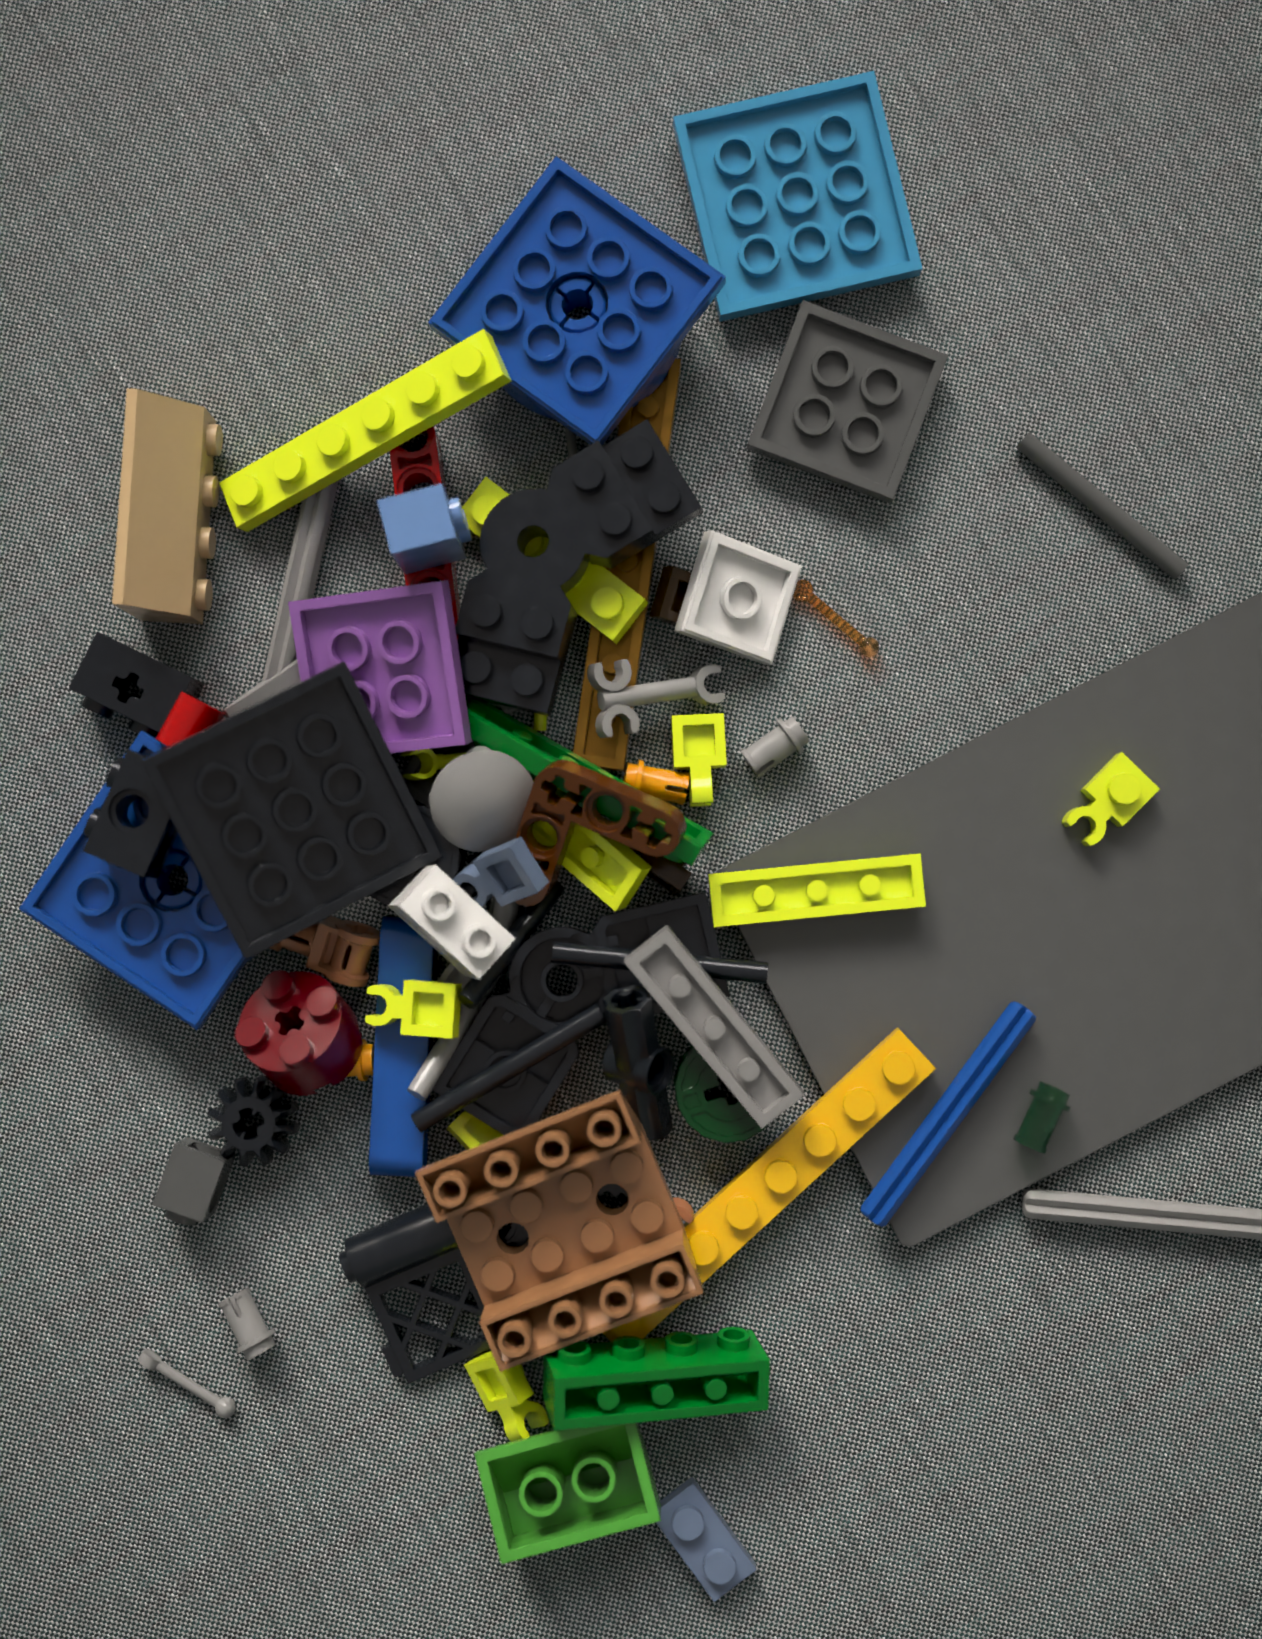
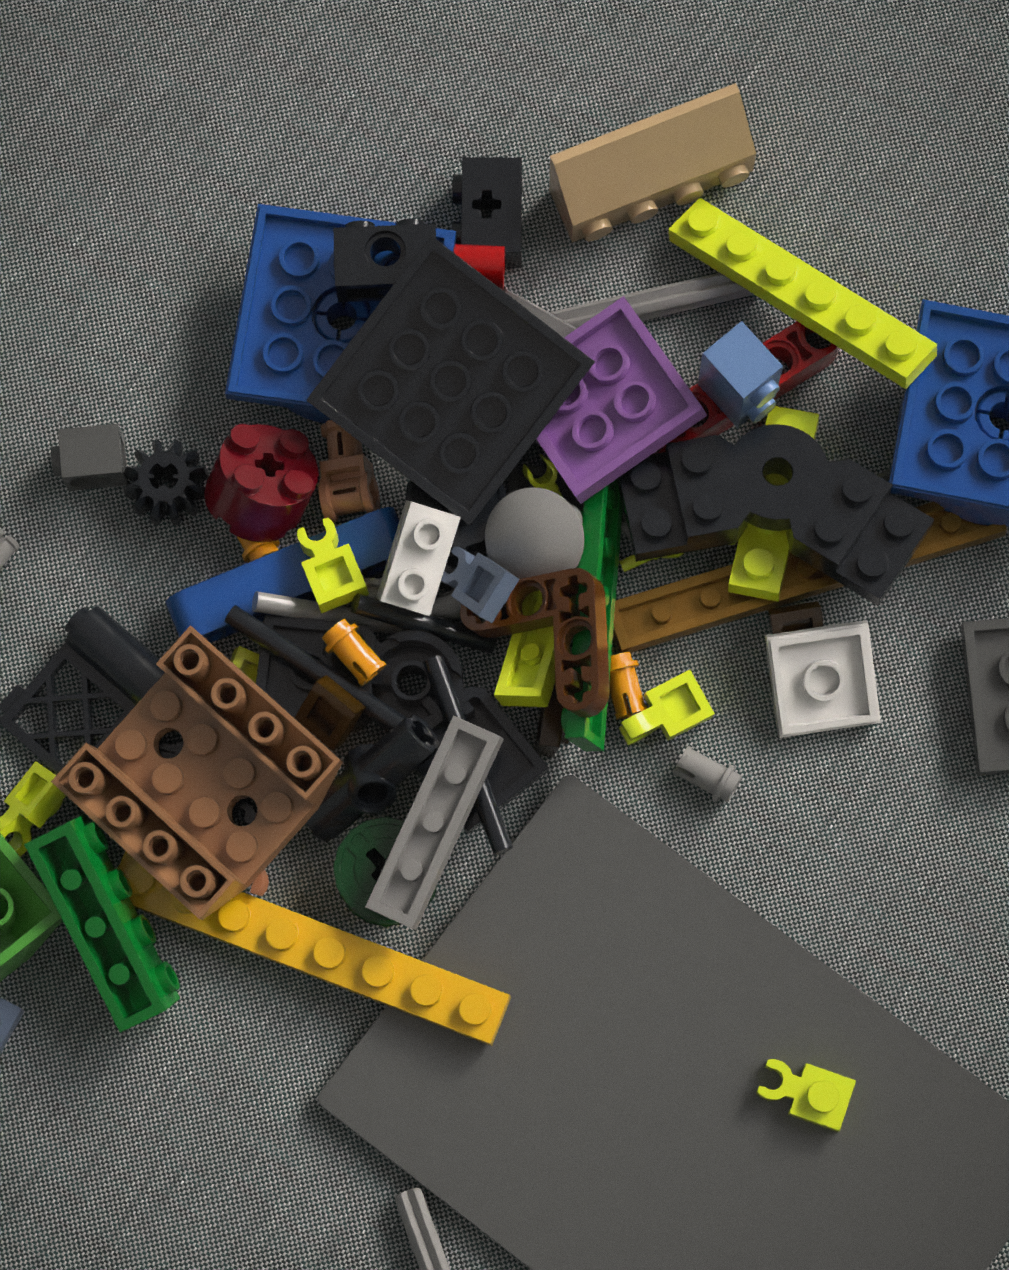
camera: 70 degrees right, 10 degrees down
(511, 1024) = (353, 651): none -> light orange pin
(560, 1075) = (329, 712): none -> dark brown plate
(617, 698) = (680, 613): light grey bar -> none
(804, 592) = (859, 737): clear orange hinge -> none
(816, 890) = (597, 865): neon yellow plate -> none
(948, 1113) = (455, 1077): blue axle -> none
(1042, 1116) = (492, 1163): clear green pin -> none

